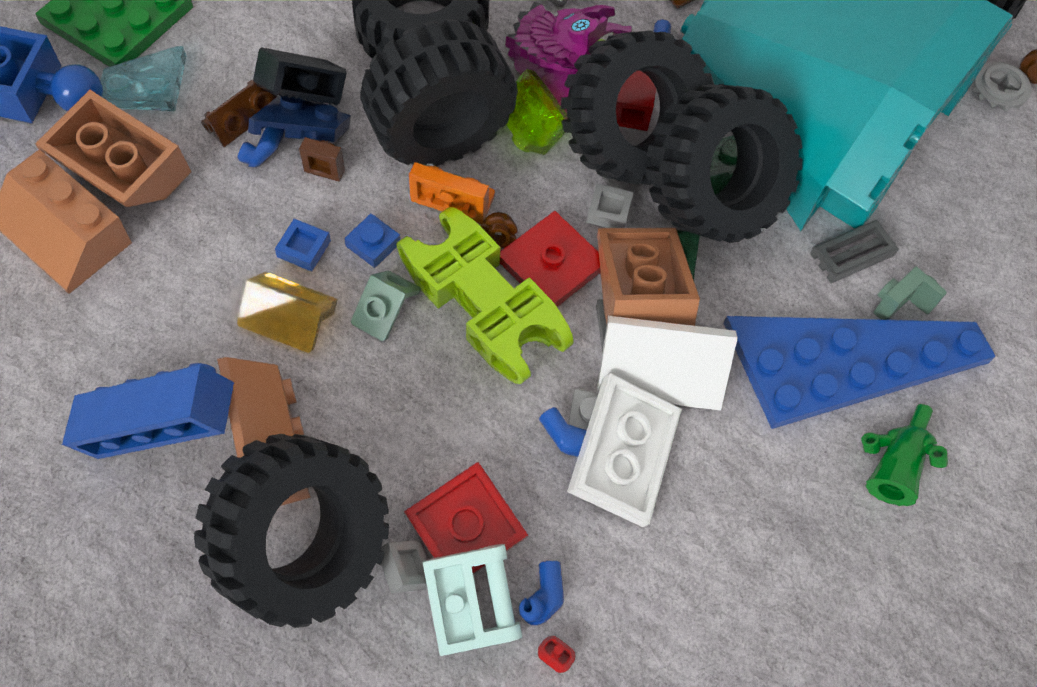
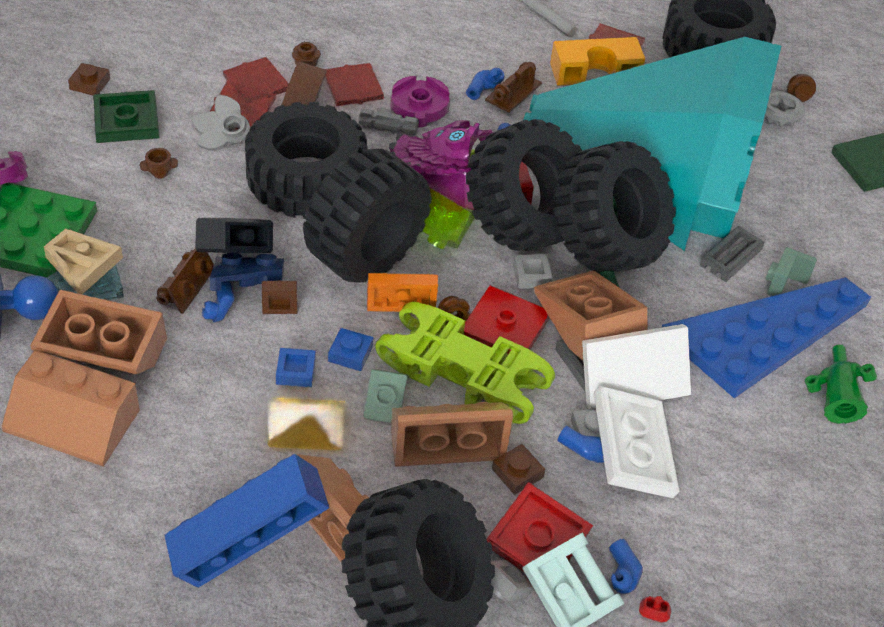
camera: 20 degrees left, 15 degrees down
(136, 59) = (81, 258): none -> tan wing
(422, 372) = (450, 433): none -> nougat slope
(484, 436) = (518, 468): none -> reddish brown plate

